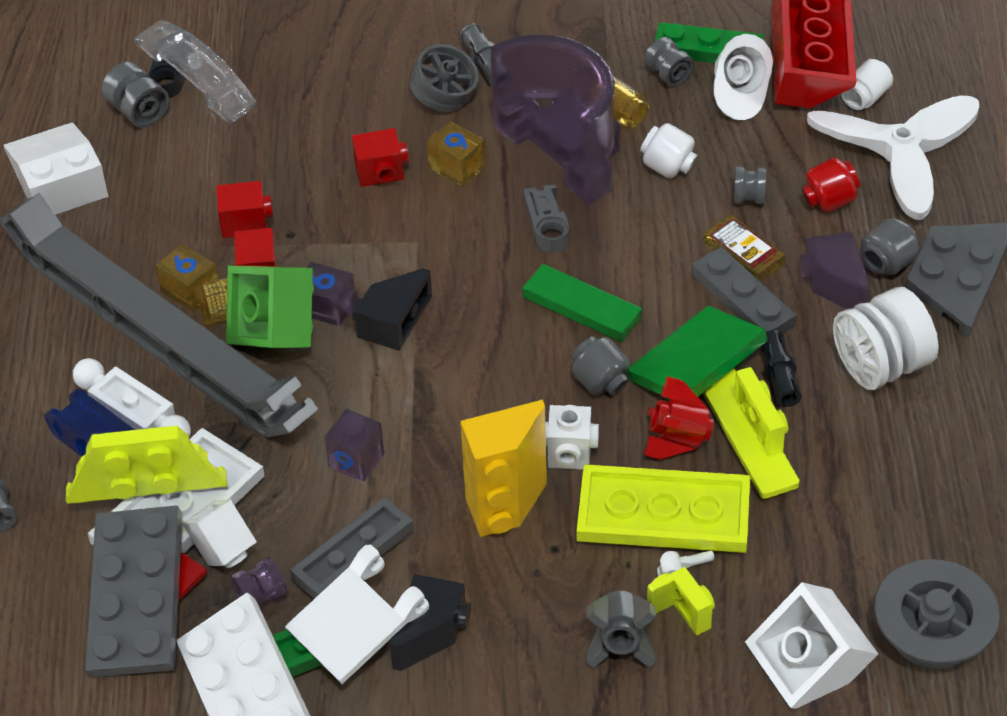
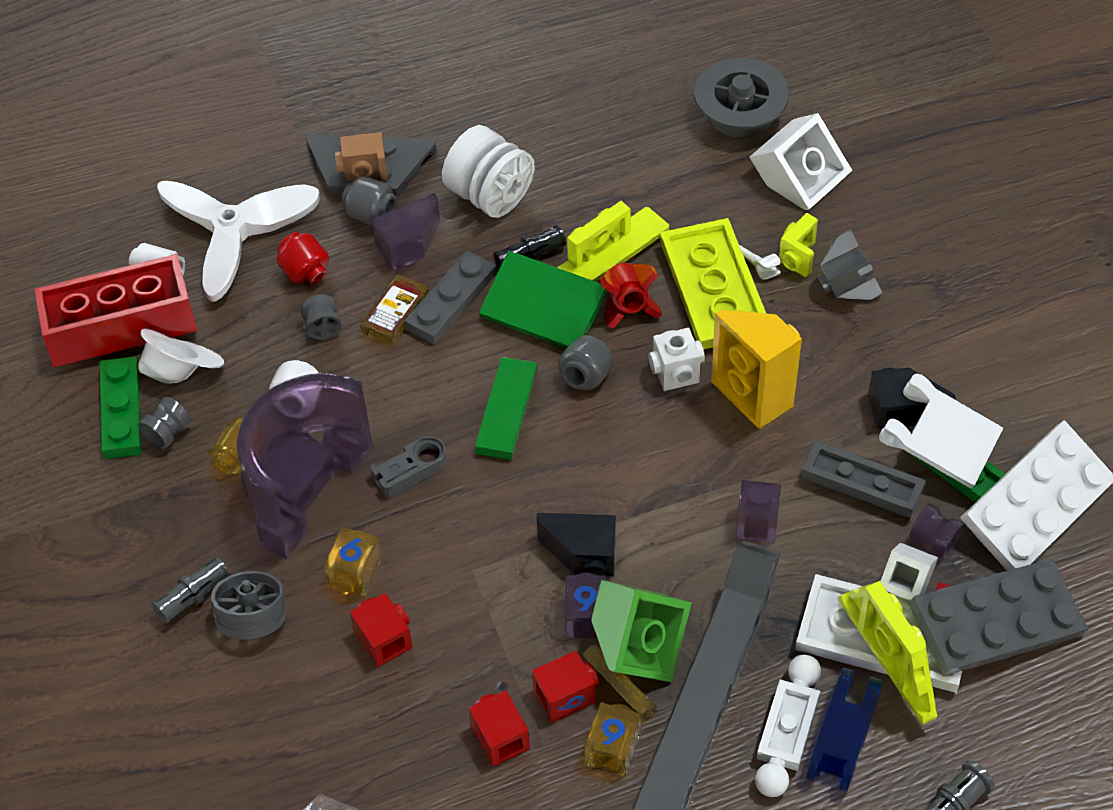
camera: 110 degrees left, 5 degrees up
(939, 241) = (362, 156): none -> medium nougat brick

